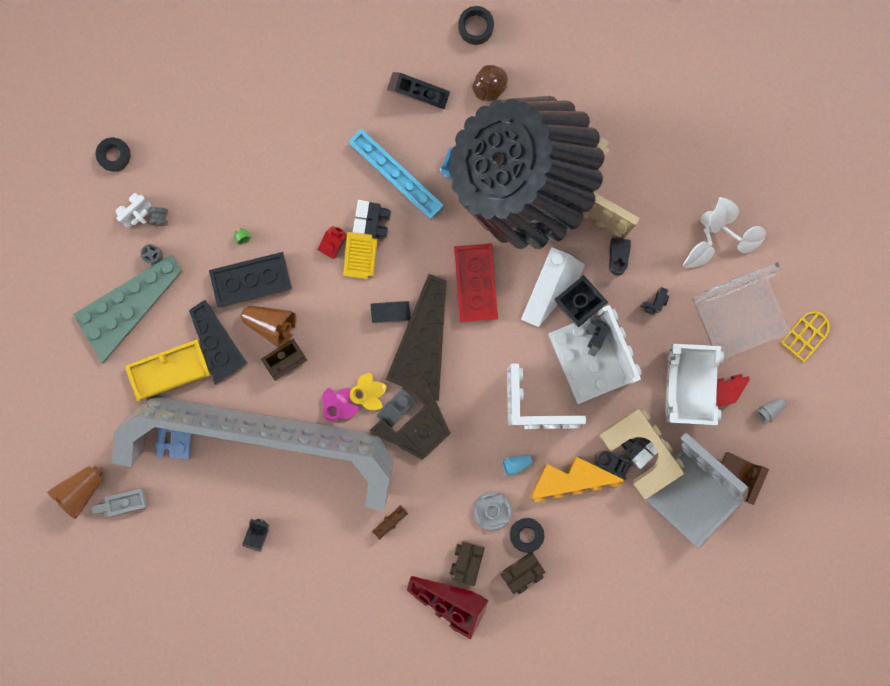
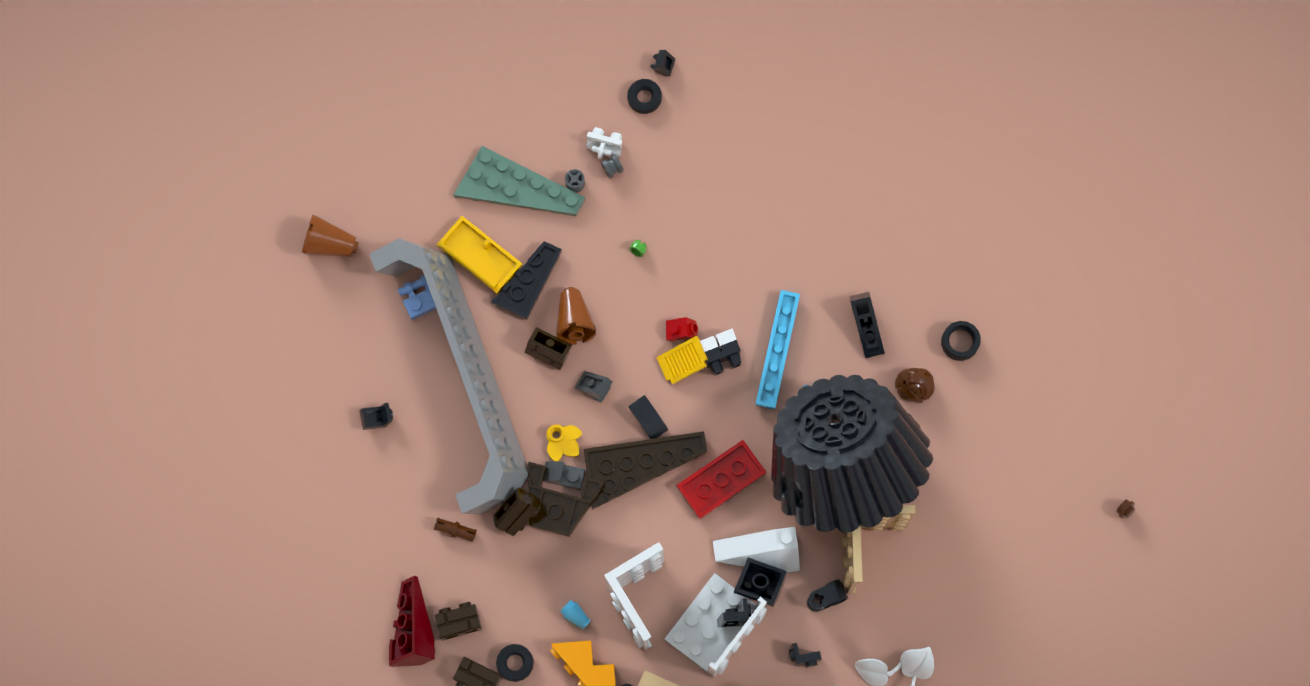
camera: 60 degrees right, 10 degrees down
(94, 121) = (664, 63): none -> black tile
(121, 503) = (338, 284): light grey hinge -> none
(250, 279) = (603, 278): black plate -> none
(337, 340) = (594, 385): none -> dark grey slope
(340, 402) = (539, 421): dark pink plate -> none
(406, 464) = (516, 512): none -> dark brown brick
(492, 511) = (519, 618): light grey tile -> none

